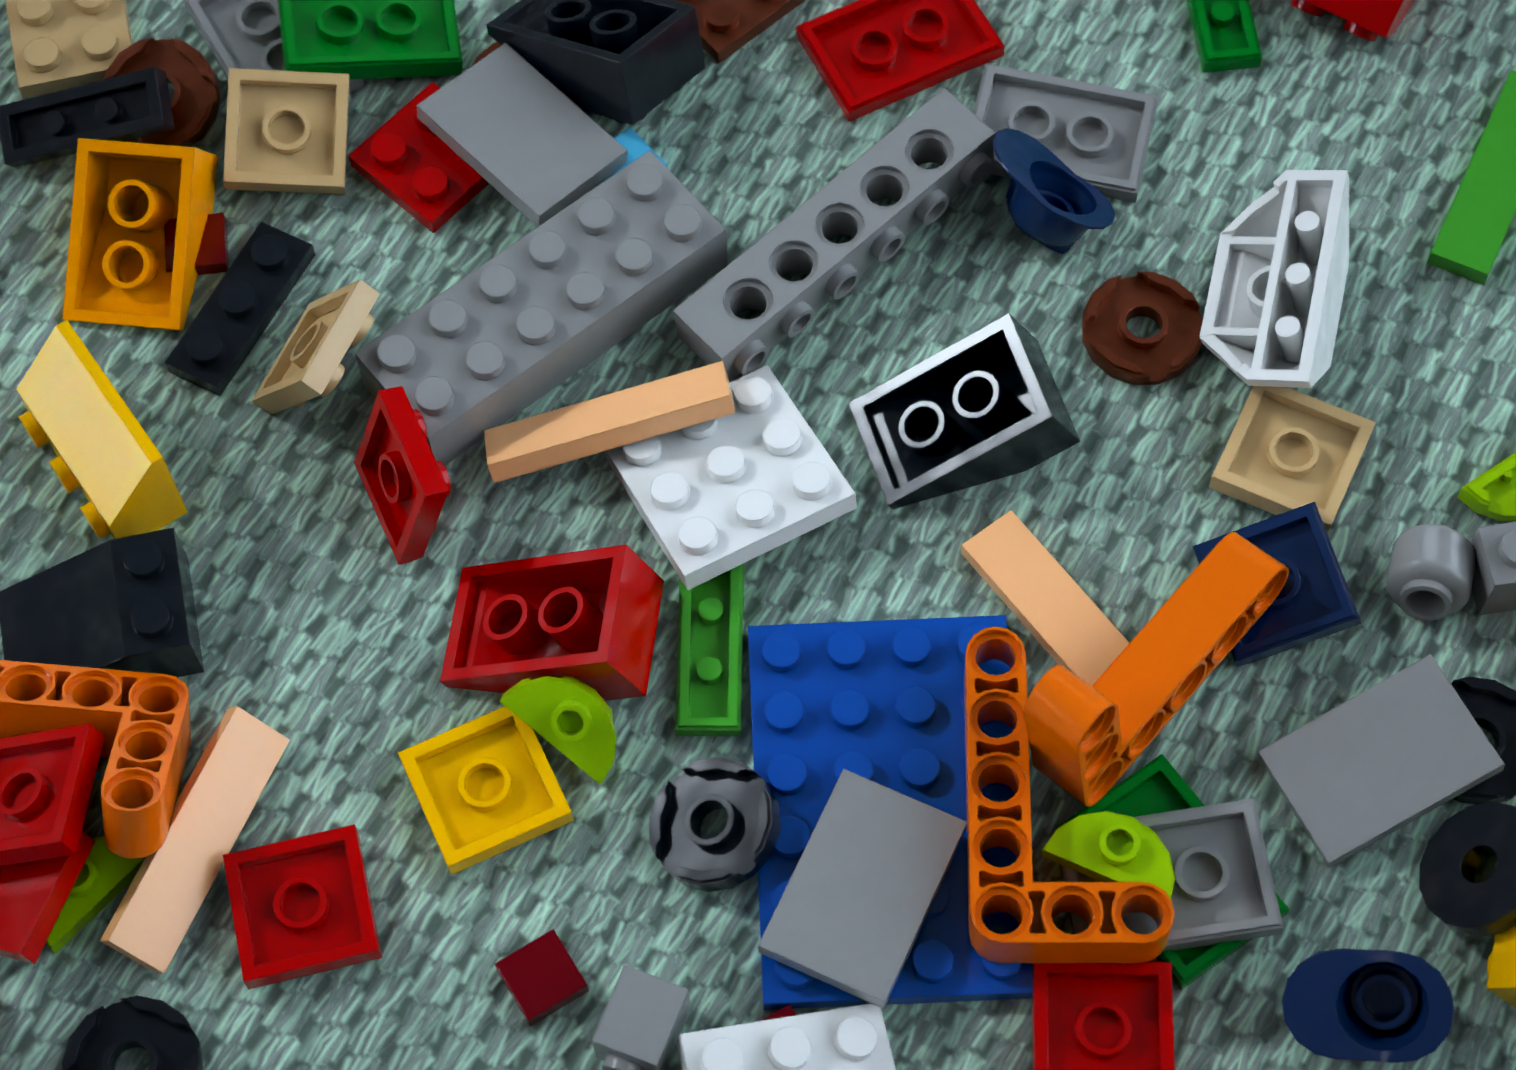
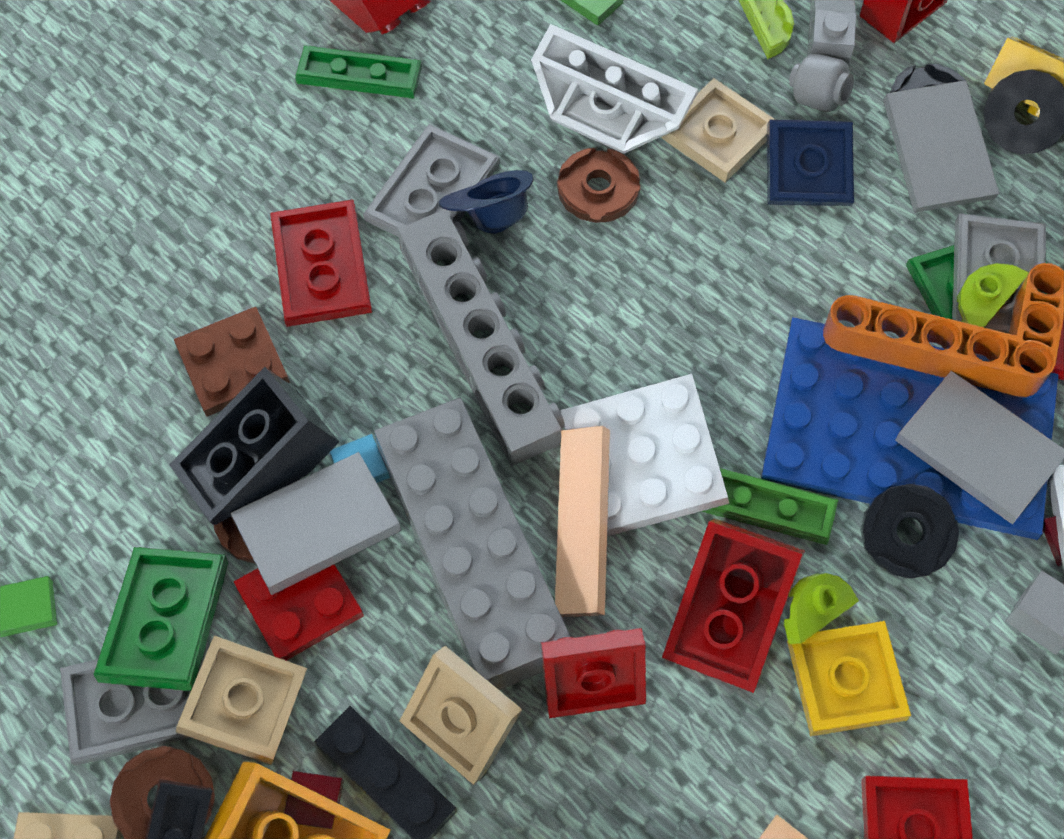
camera: 75 degrees left, 0 degrees up
(541, 977) = (996, 675): dark red tile -> none
(964, 416) = (642, 301): black slope -> none
(1044, 597) = (802, 286): light nougat tile -> none
(1094, 733) = (868, 240): orange beam -> none

